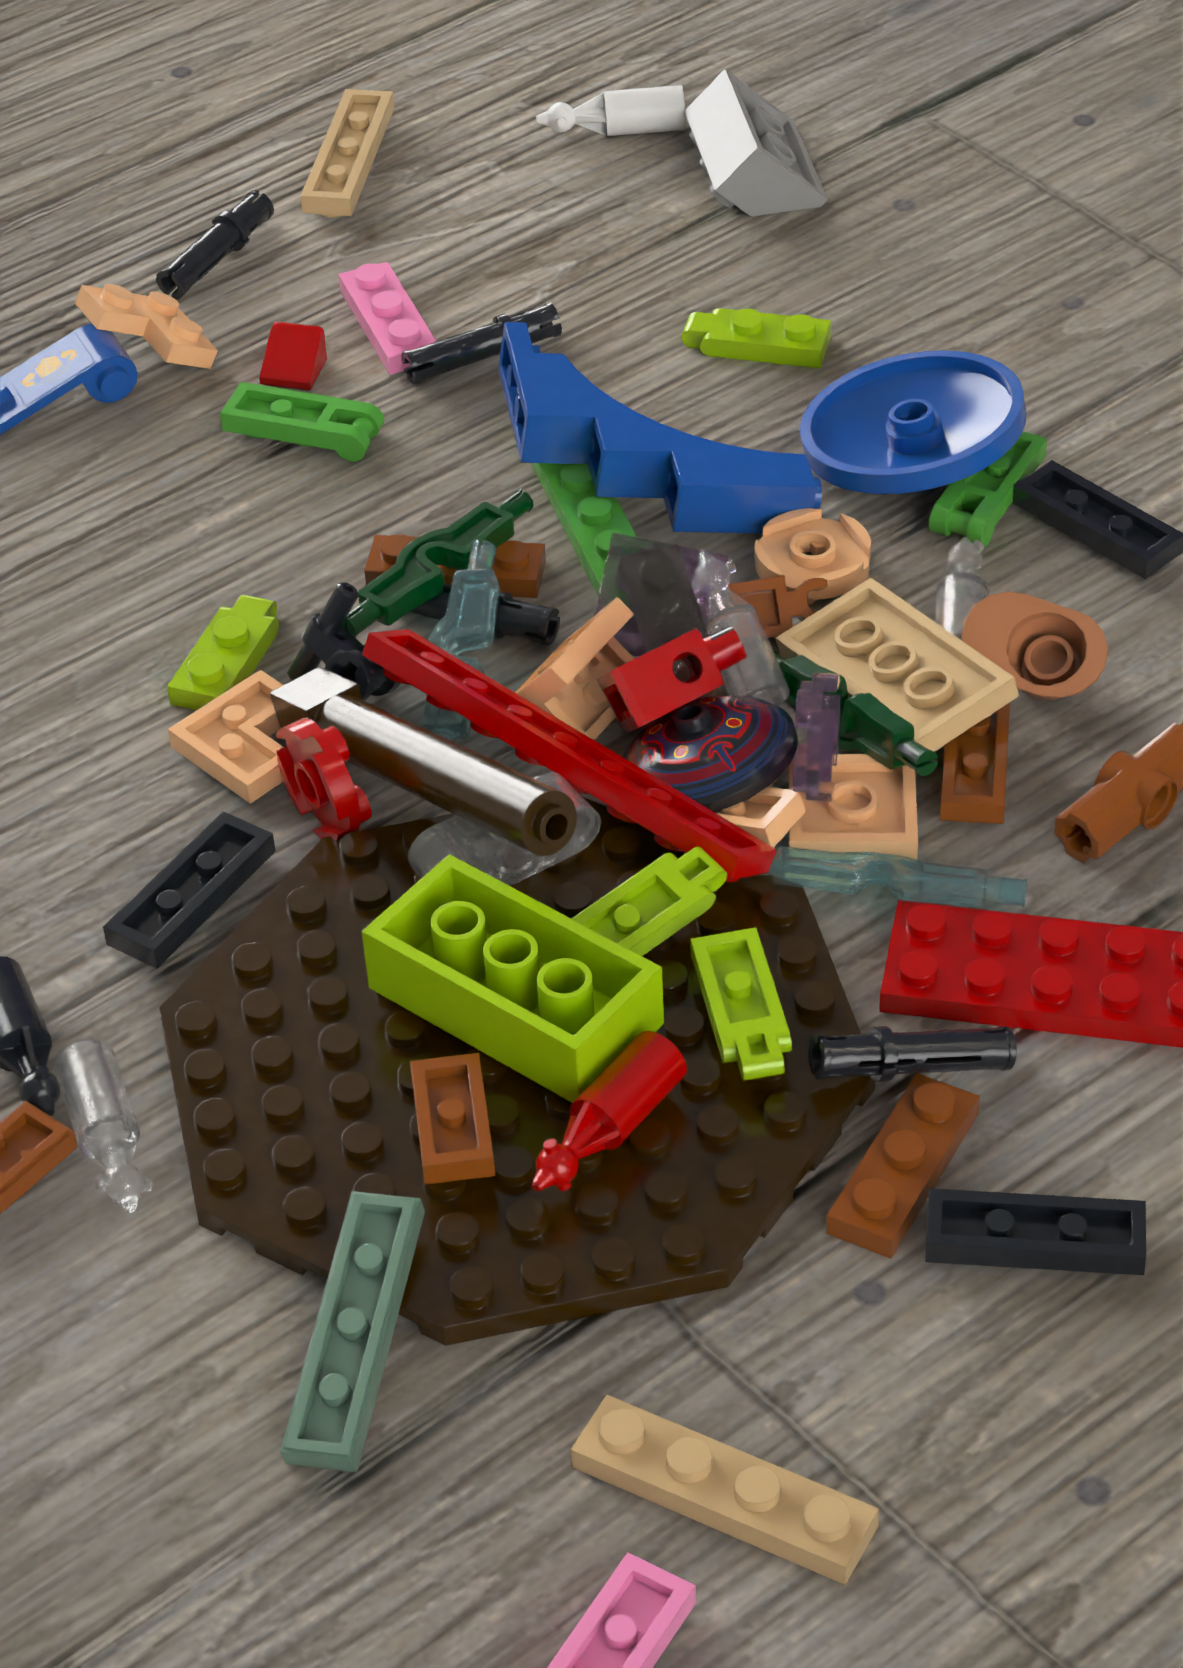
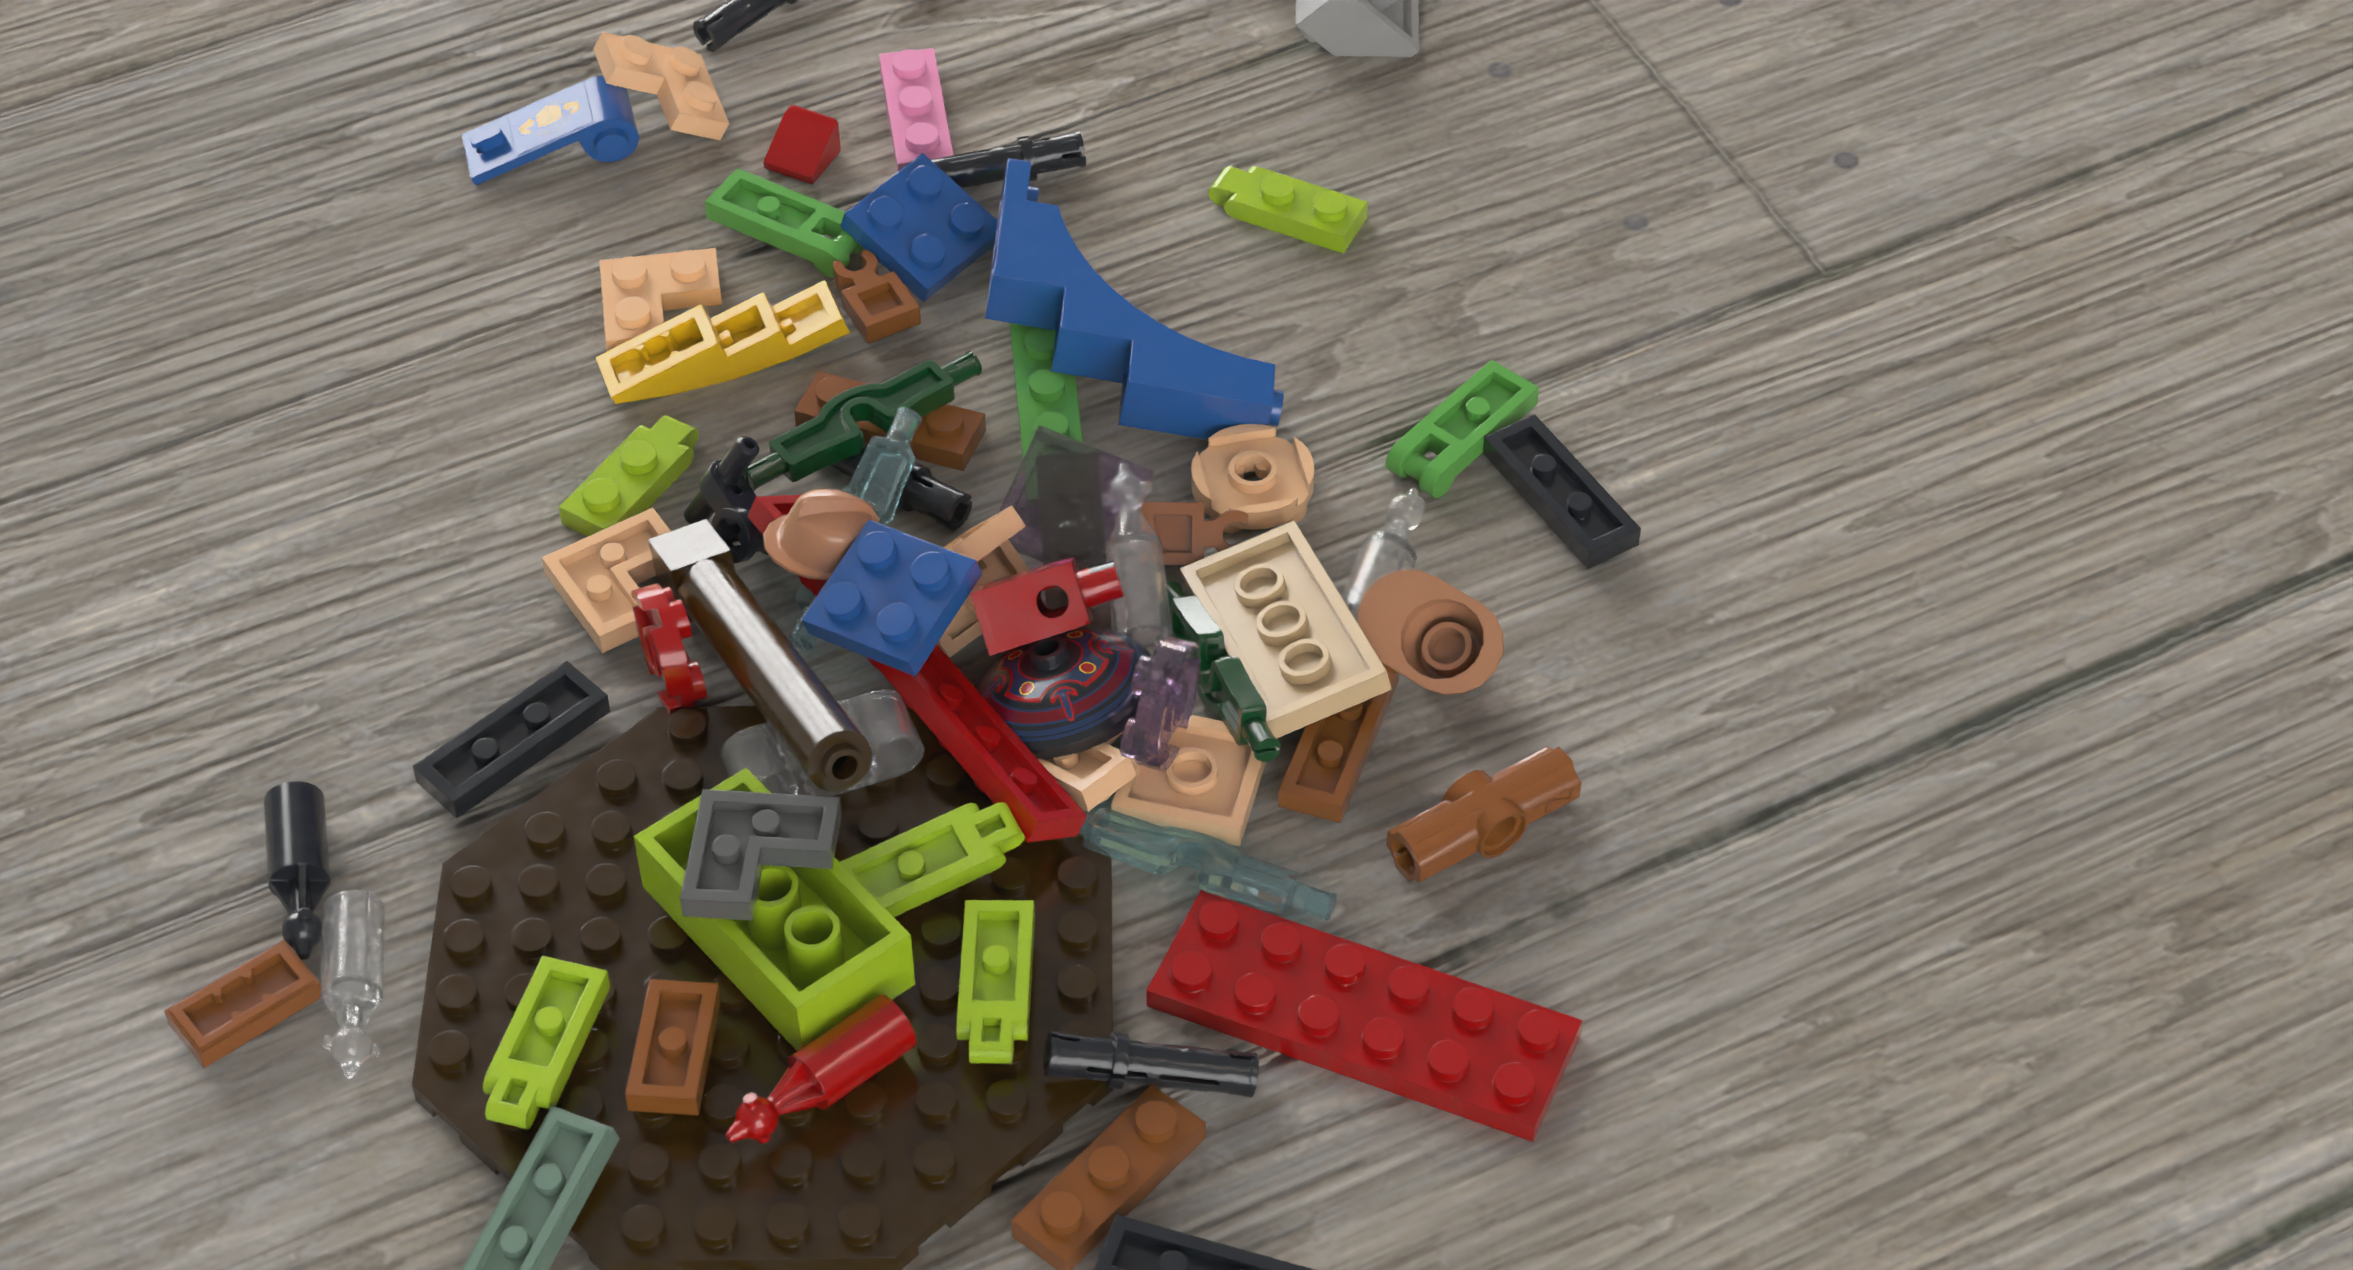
camera: 10 degrees right, 5 degrees up
(183, 499) = (645, 286): none -> light nougat plate
(261, 536) = (706, 351): none -> yellow slope
(322, 1136) = (543, 1040): none -> lime hinge
(407, 472) = (875, 302): none -> dark orange plate
(431, 402) = (922, 227): none -> blue plate
(455, 653) = (817, 532): none -> nougat piece
(478, 902) = (741, 834): none -> dark grey plate
(533, 690) = (892, 597): none -> blue plate
(913, 422) = (1402, 344): blue dish -> none

